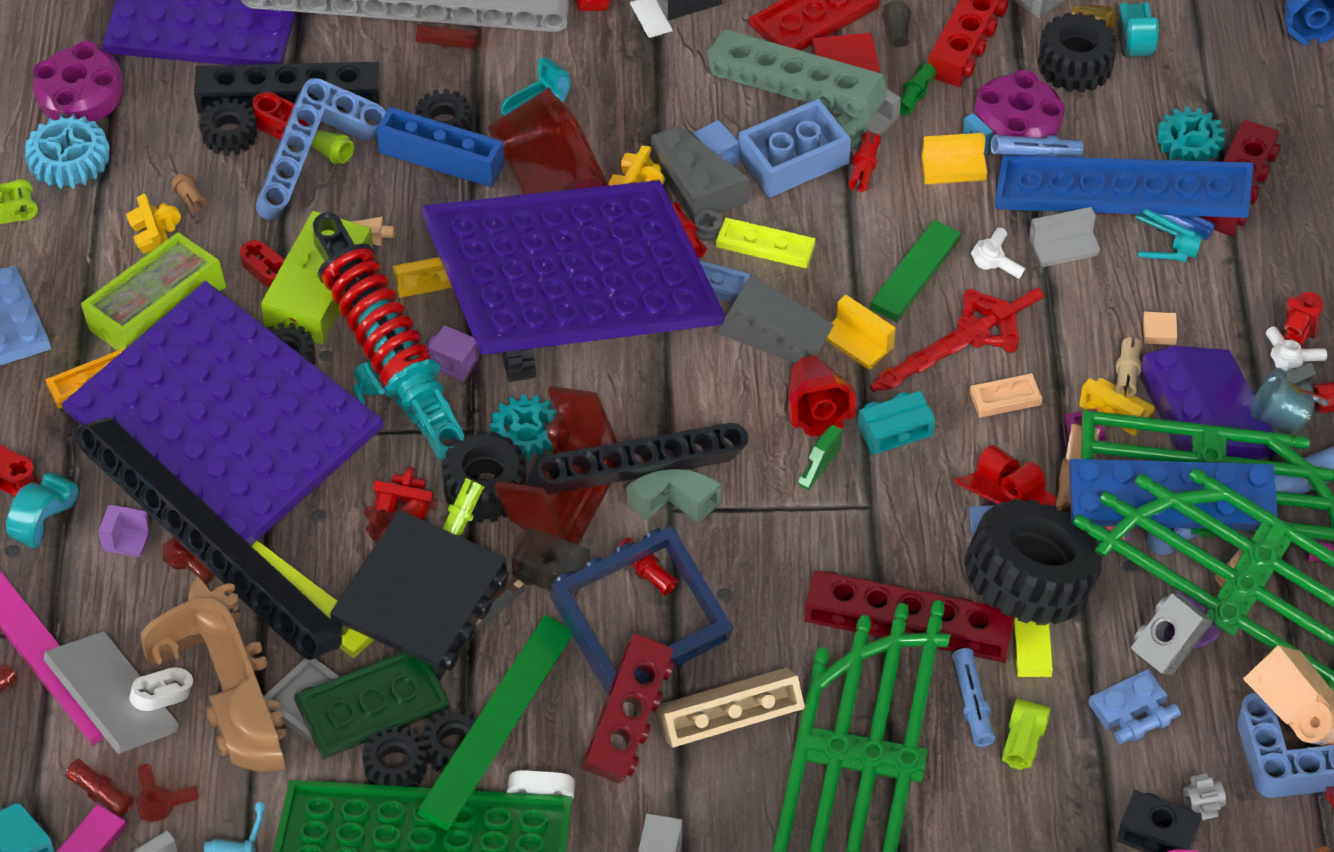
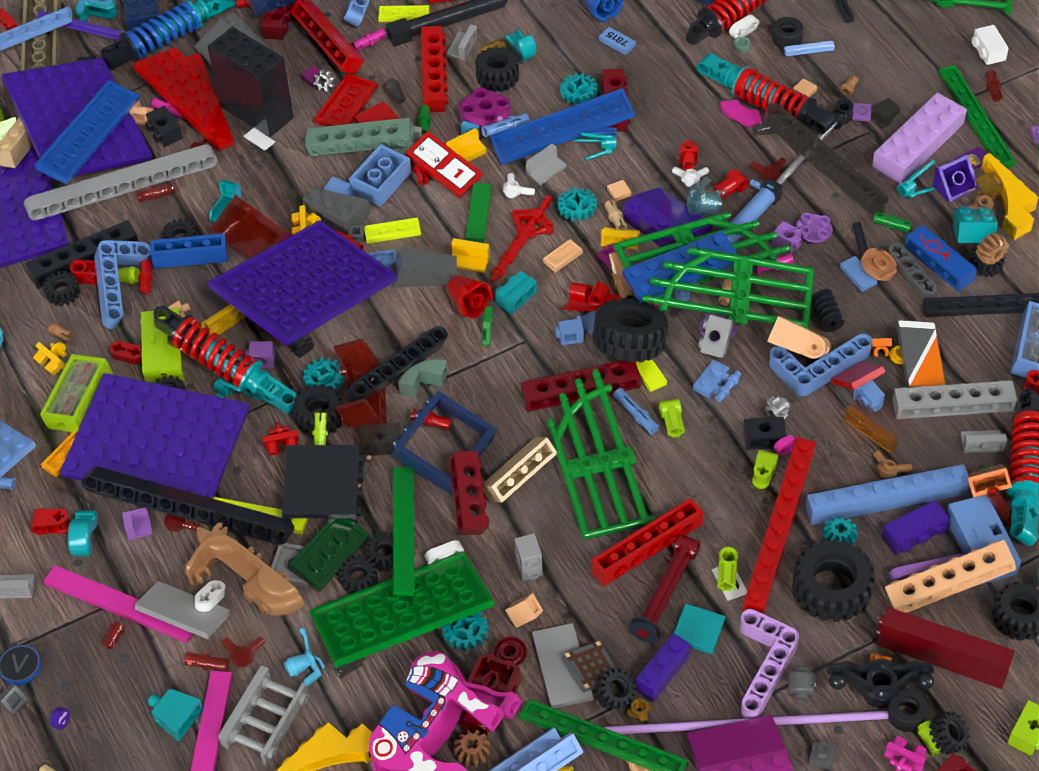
camera: 25 degrees left, 0 degrees up
(358, 160) = (145, 276): none -> red axle
(381, 519) = (278, 459): clear red piece -> none
(902, 171) = (443, 164): none -> tile
(944, 522) = (570, 331): none -> medium blue brick
(1077, 322) = (577, 204): none -> teal gear
(1302, 82) = (617, 41): none -> medium blue tile

